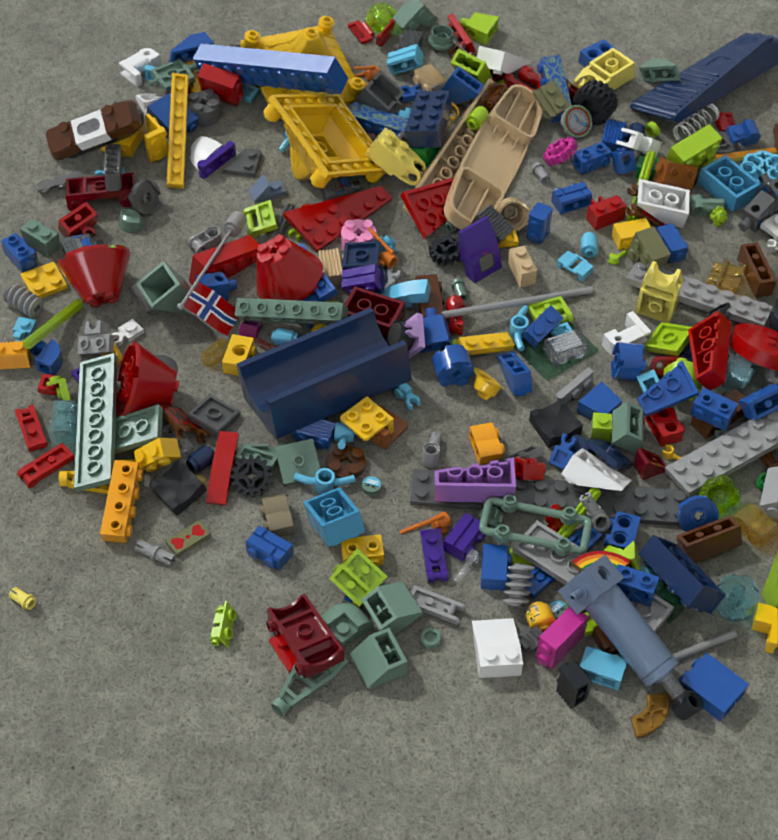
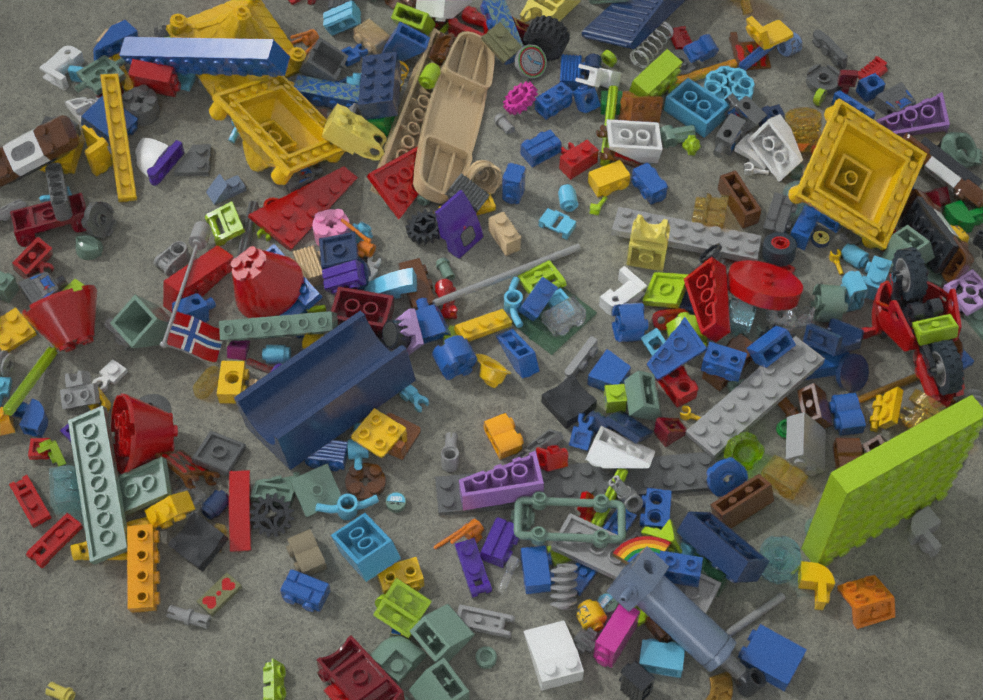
camera: 10 degrees left, 5 degrees up
(648, 247) = (629, 195): olive brick -> none

